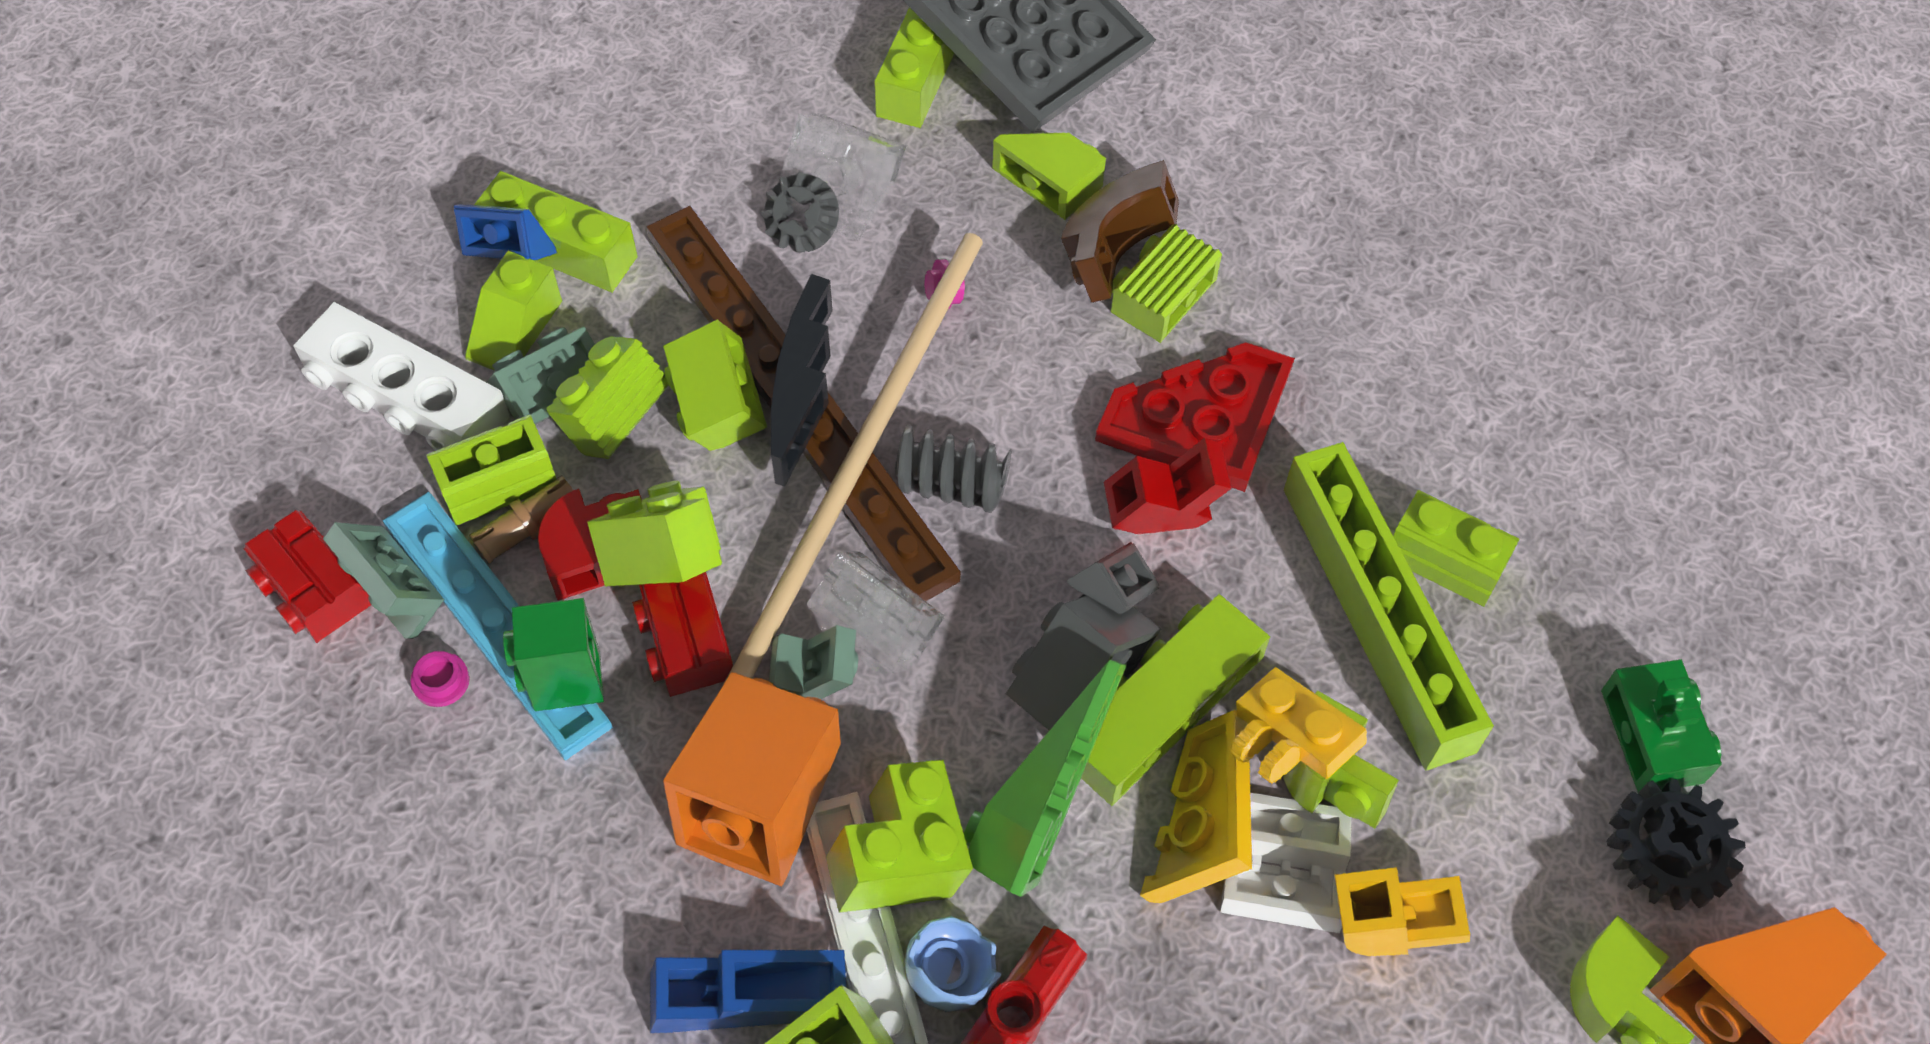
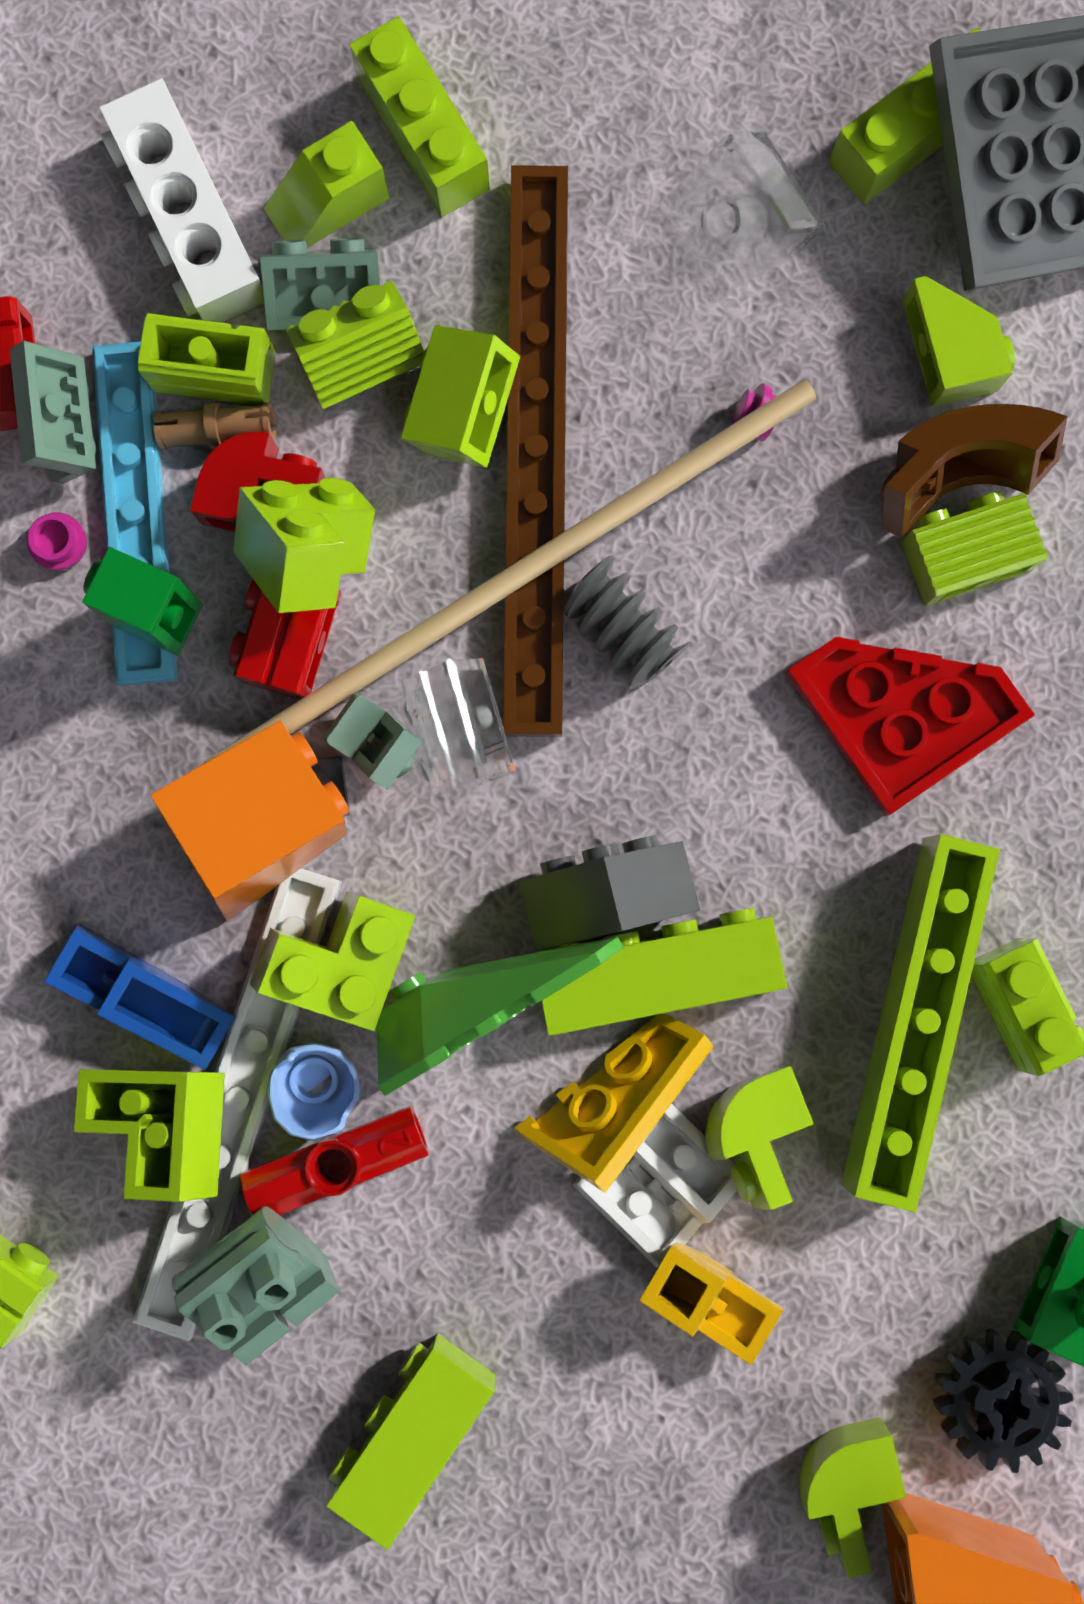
camera: 40 degrees right, 25 degrees up
(495, 230) = (360, 95): blue slope -> none
(800, 384) = (525, 458): black slope -> none
(821, 216) = (684, 262): dark grey gear -> none
(1117, 579) = (690, 838): dark grey slope -> none
(1168, 497) = (806, 779): red brick -> none
(1300, 726) = (743, 1093): yellow hinge -> none

